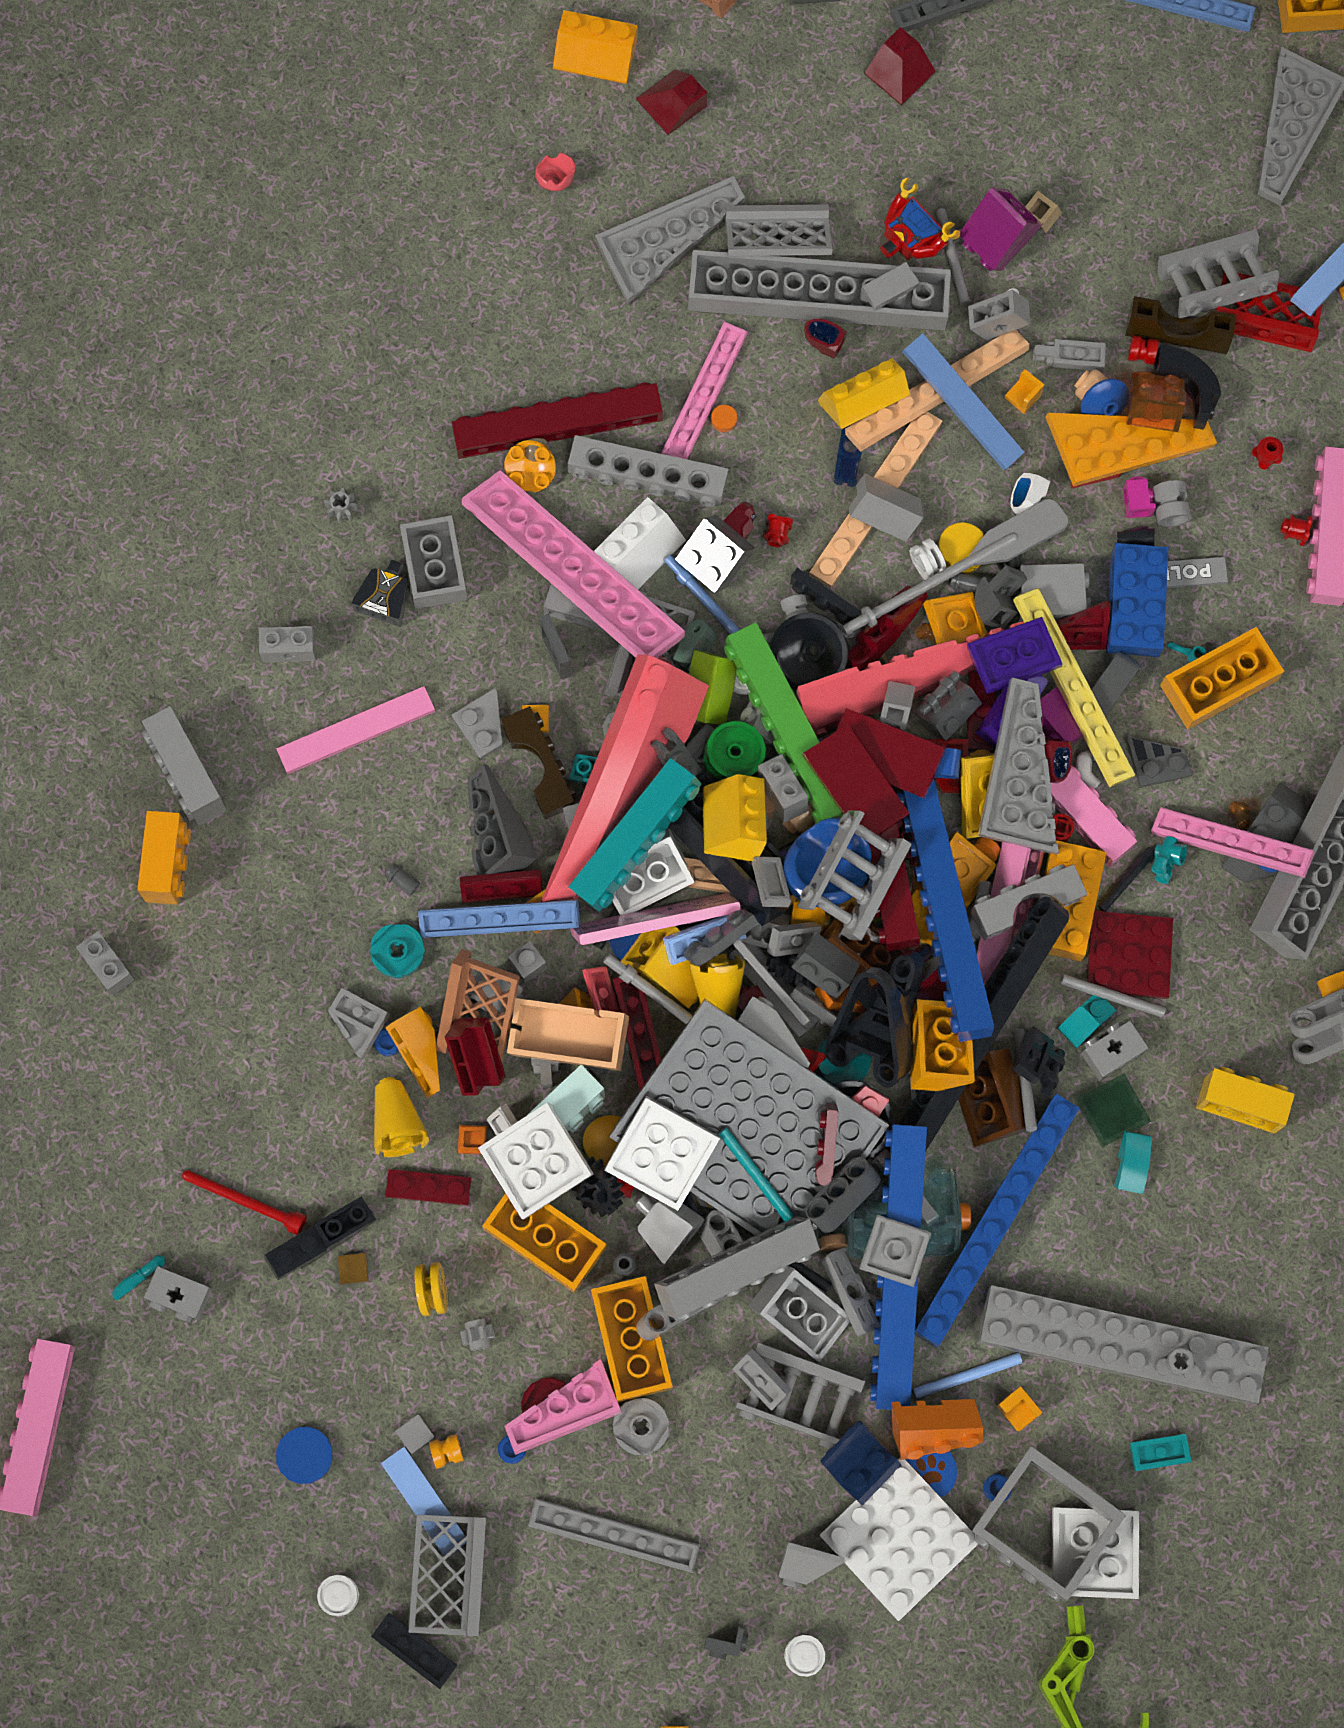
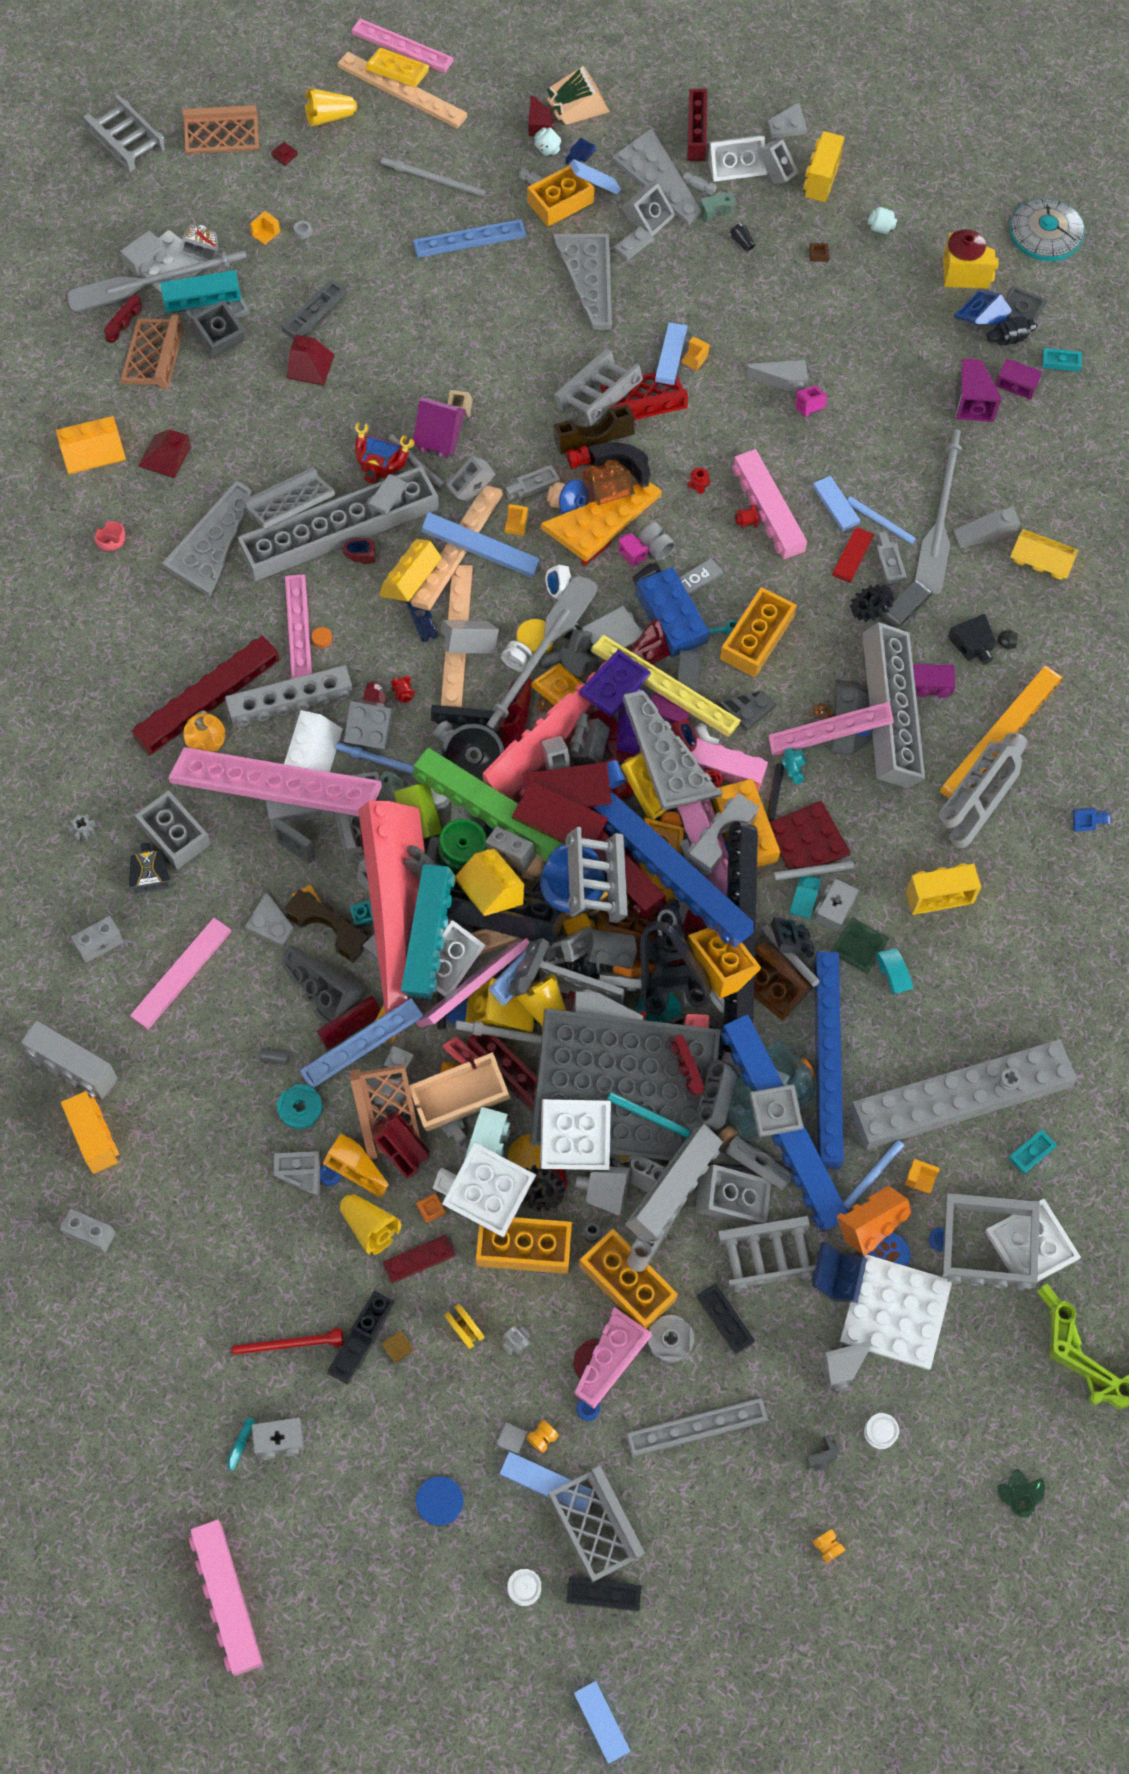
camera: 30 degrees left, 10 degrees down
(711, 1439) = (725, 1319): none -> black plate
(762, 1379) = (736, 1254): light grey plate -> none
(771, 882) = (541, 910): light grey tile -> none

